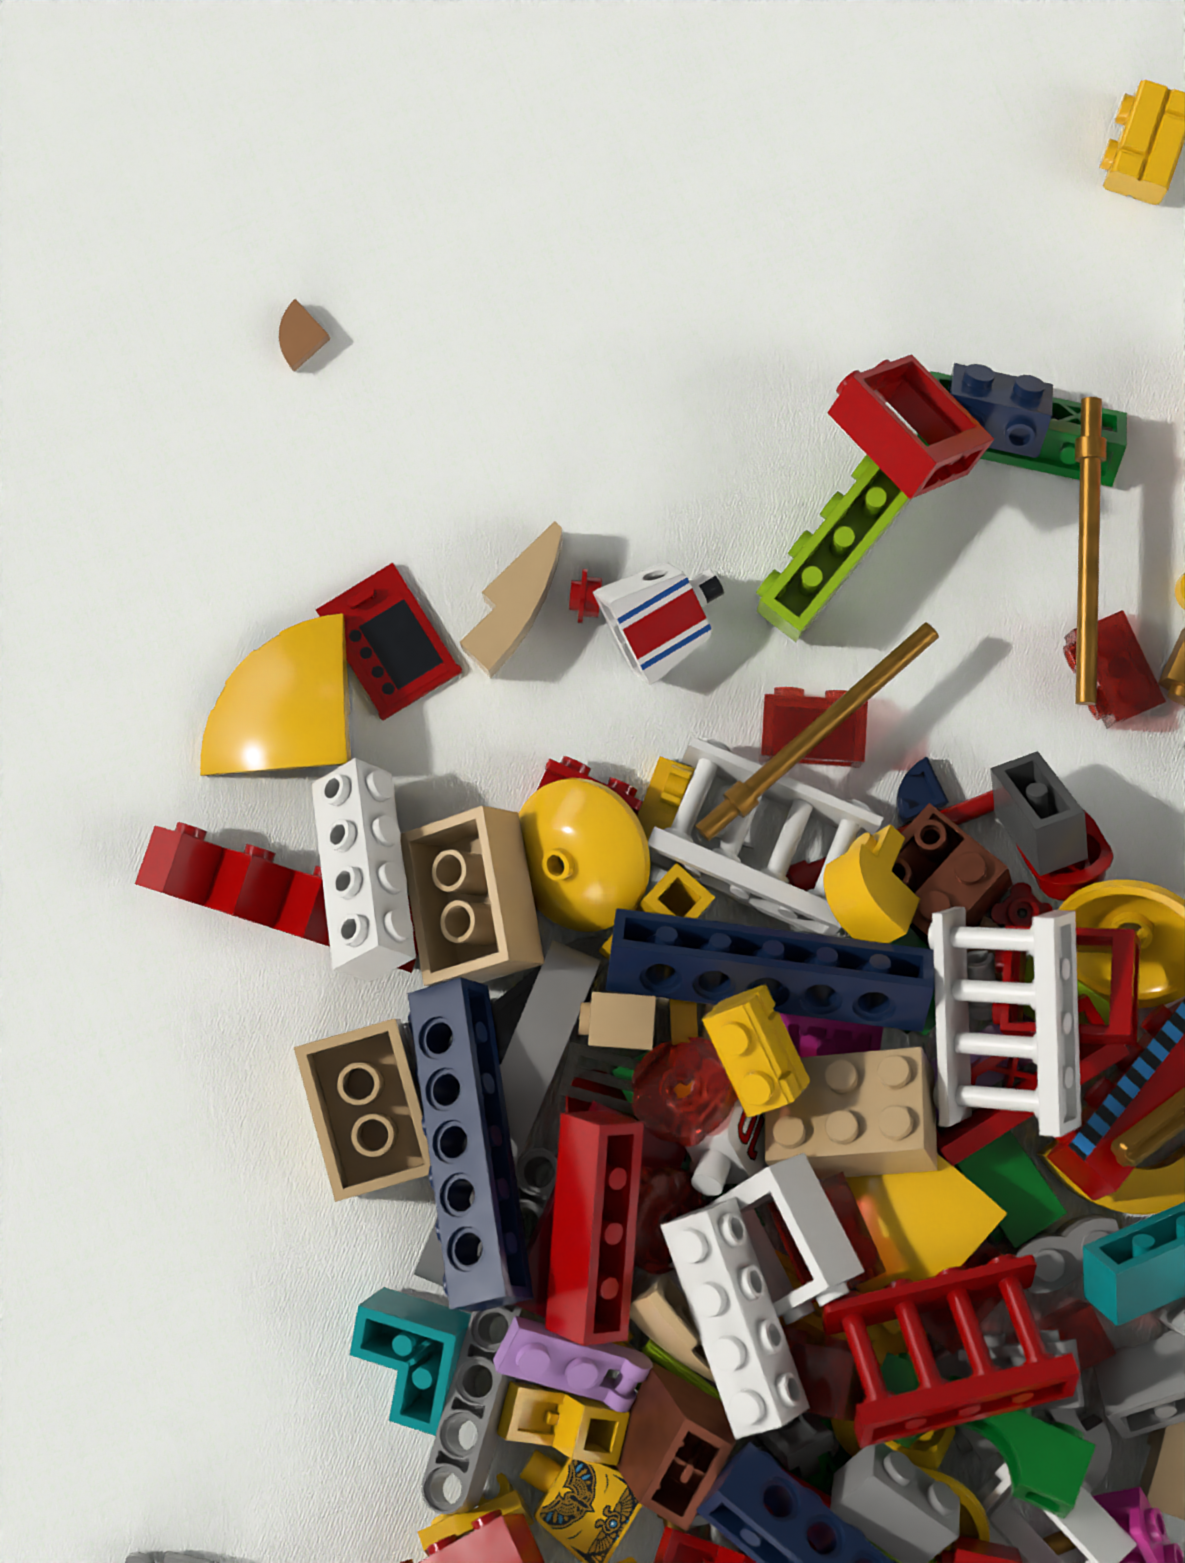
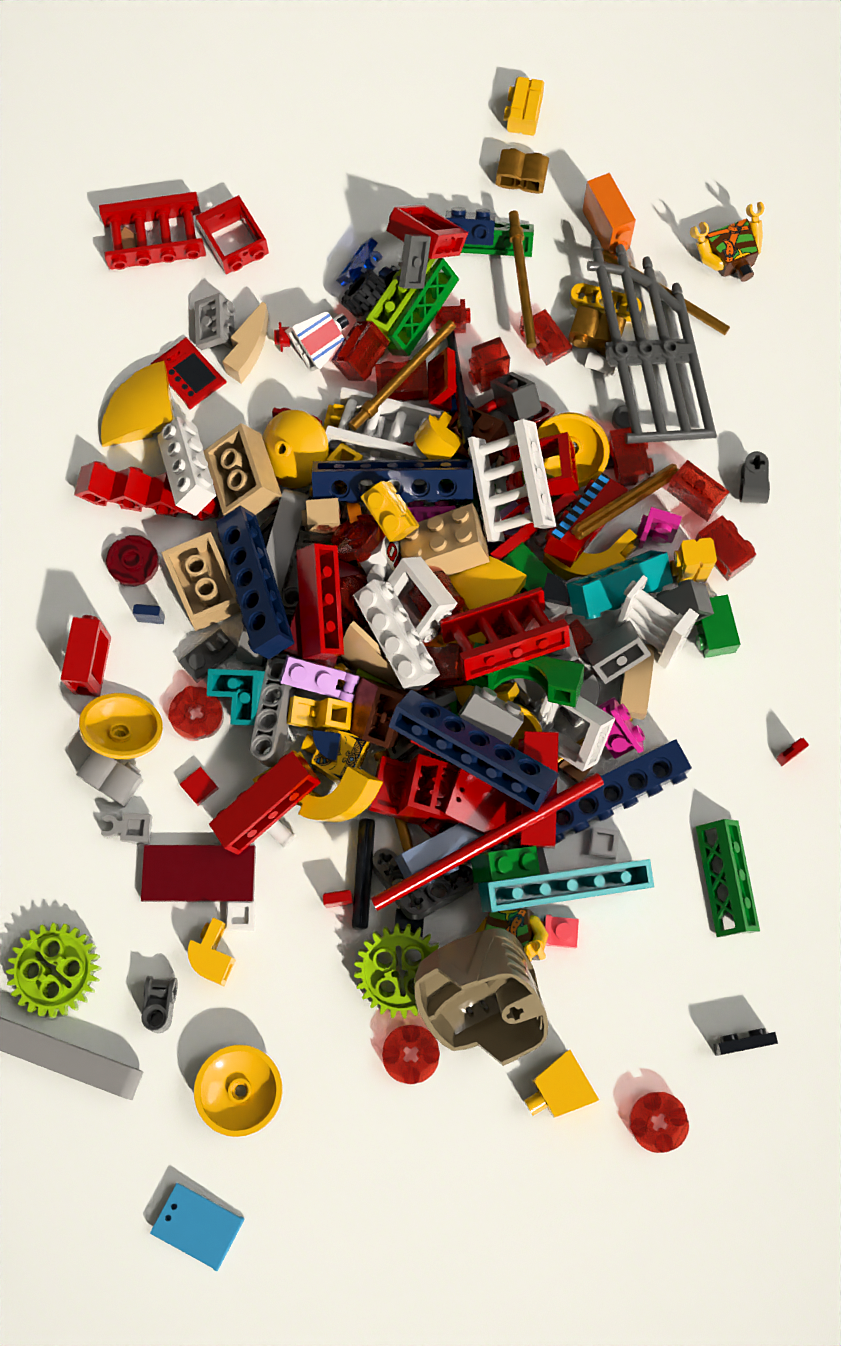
camera: 10 degrees left, 10 degrees down
(125, 1236) = (86, 656): none -> red window
(147, 1476) = (111, 777): none -> light grey brick
(182, 1353) = (120, 726): none -> yellow dish
(235, 1030) = (132, 560): none -> dark red tile
(255, 1154) = (148, 614): none -> dark blue tile
(294, 1374) = (199, 728): none -> clear red plate
(314, 1516) = (199, 786): none -> red tile
(326, 276) = (148, 210): none -> red fence
(361, 1251) = (208, 655): none -> dark grey plate
(452, 542) = (214, 322): none -> light grey bracket
(495, 308) = (223, 216): none -> red window
(570, 1492) = (327, 744): none -> dark blue tile
(738, 656) = (360, 351): none -> clear red brick
(760, 448) = (361, 258): none -> clear blue plate
(761, 531) = (363, 293): none -> black tyre
(816, 489) = (387, 274): none -> dark blue tile
(876, 503) = (414, 261): none -> dark grey plate
(876, 584) = (422, 309): none -> green fence
(895, 747) = (442, 379): none -> red bracket
(928, 864) = (464, 423): none -> black bar
(932, 600) = (457, 314): none -> clear red bracket
(994, 730) = (487, 363): none -> clear red brick
(1058, 1250) = (555, 590): none -> black tile
(1122, 291) = (522, 170): none -> pearl gold brick

